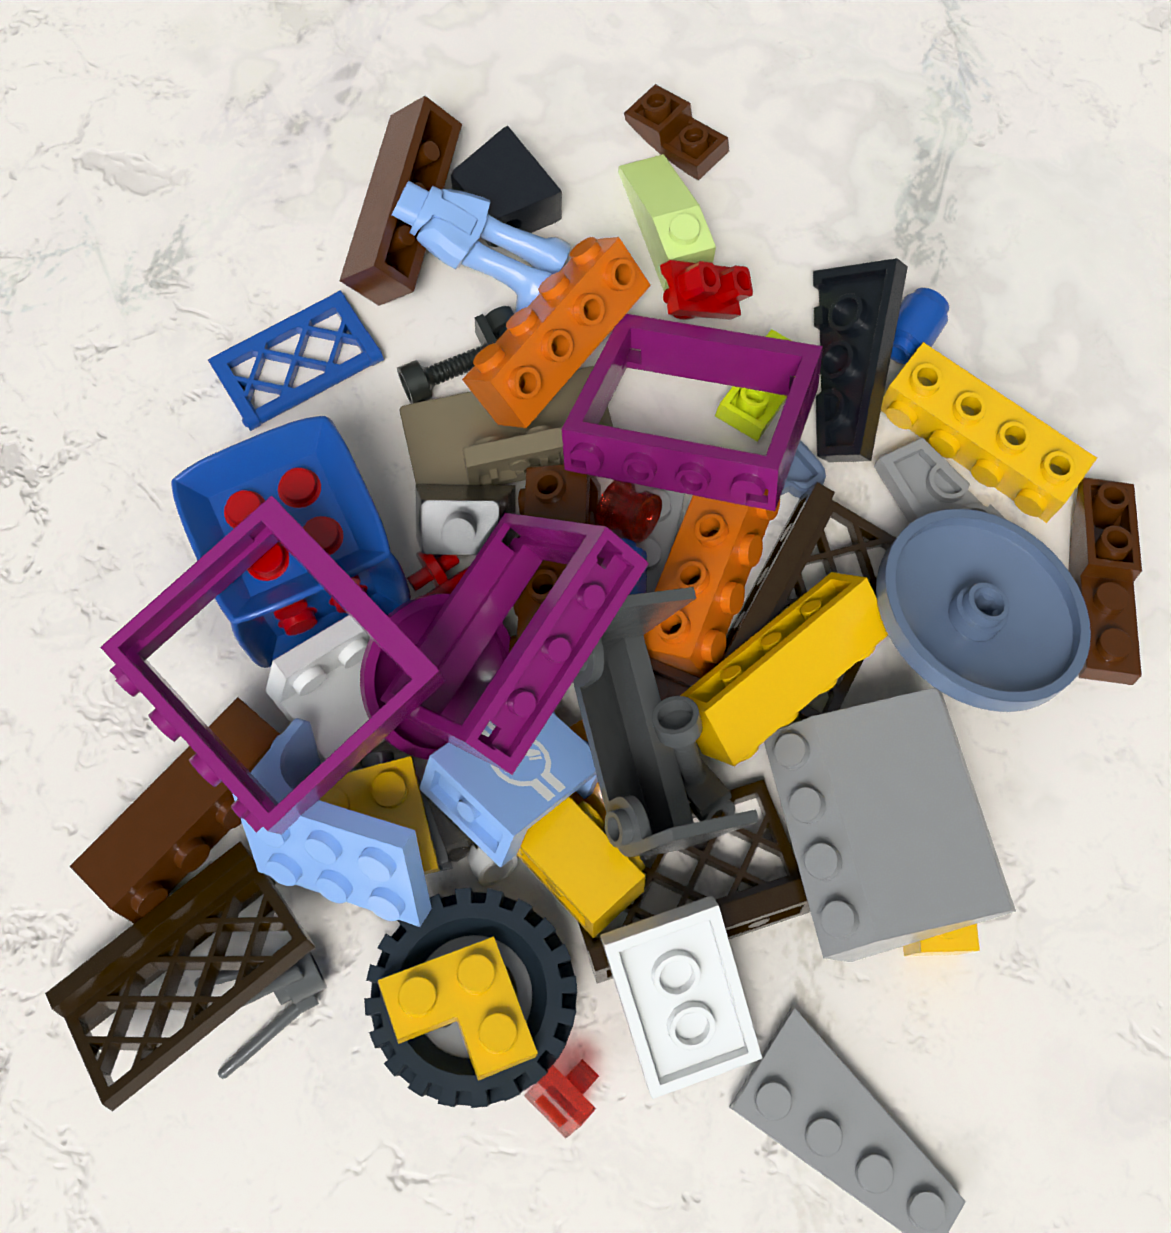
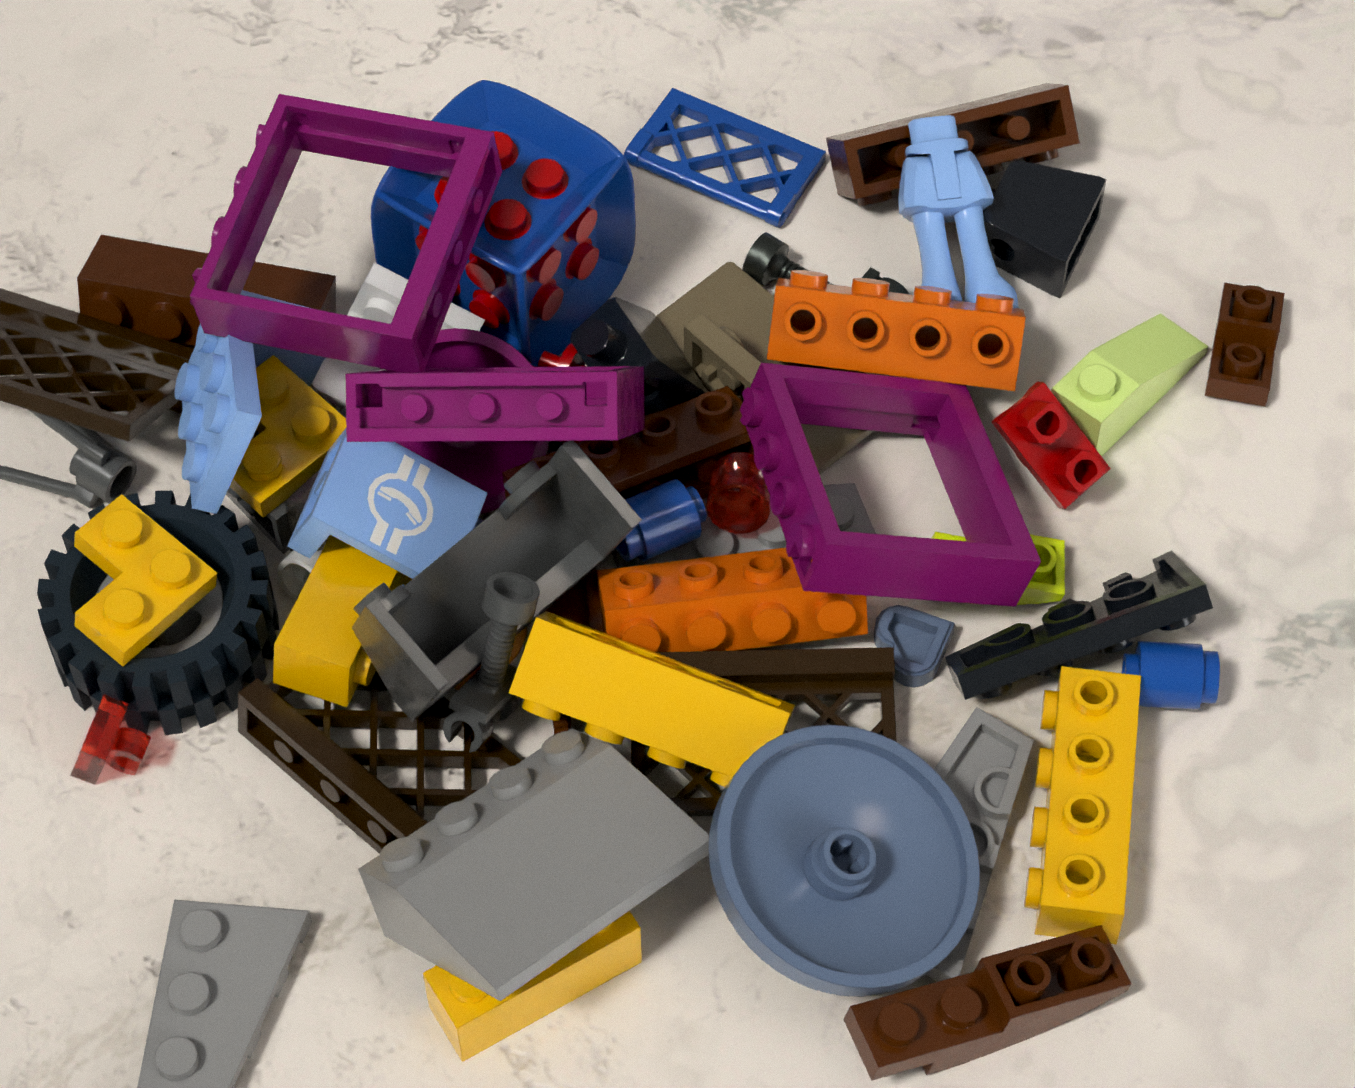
camera: 65 degrees right, 15 degrees down
(681, 996) = (254, 781): white plate -> none

